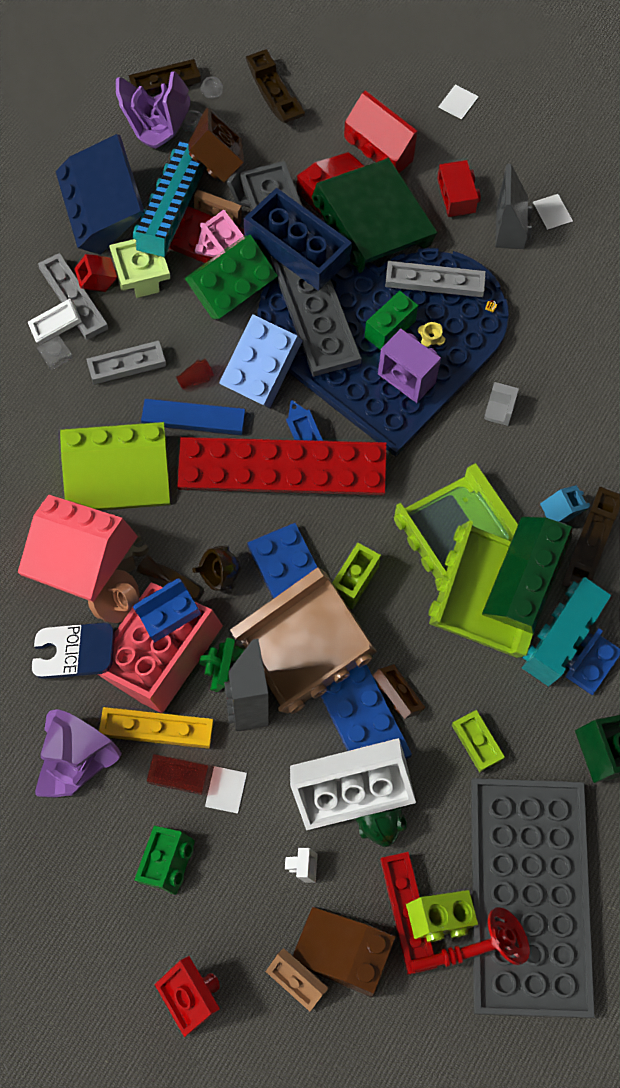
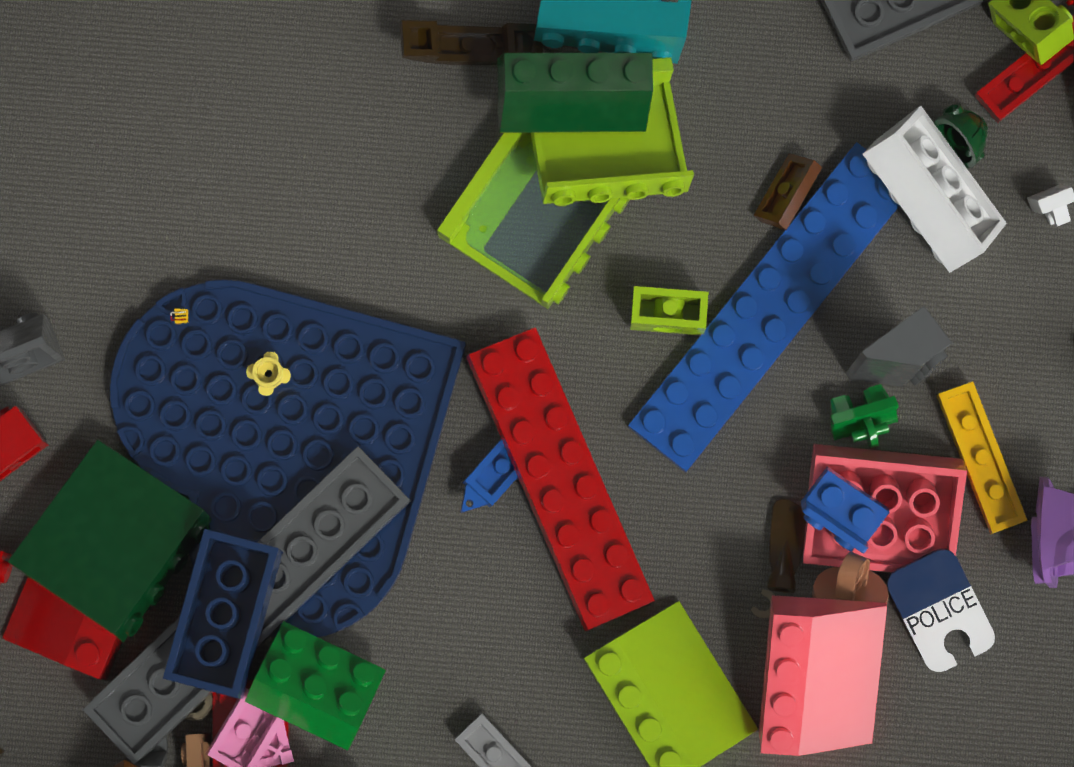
camera: 110 degrees left, 15 degrees up
(177, 774) = (1024, 402): clear red plate -> none
(194, 416) = (540, 636): blue tile -> none
(195, 374) = (478, 664): clear red cone -> none
(218, 568) = (742, 486): dark brown helmet -> none
(225, 789) = (1007, 340): white sticker -> none
(261, 361) = (428, 576): light blue brick -> none
(306, 640) = (790, 325): medium nougat panel -> none
(394, 315) = (279, 433): green brick -> none
(409, 365) = (344, 372): medium lavender brick -> none
(435, 279) = (177, 407): light grey plate -> none
(478, 741) = (800, 72): lime plate -> none
(501, 403) = (323, 240): light grey panel -> none
(565, 504) = (438, 94): dark azure brick -> none

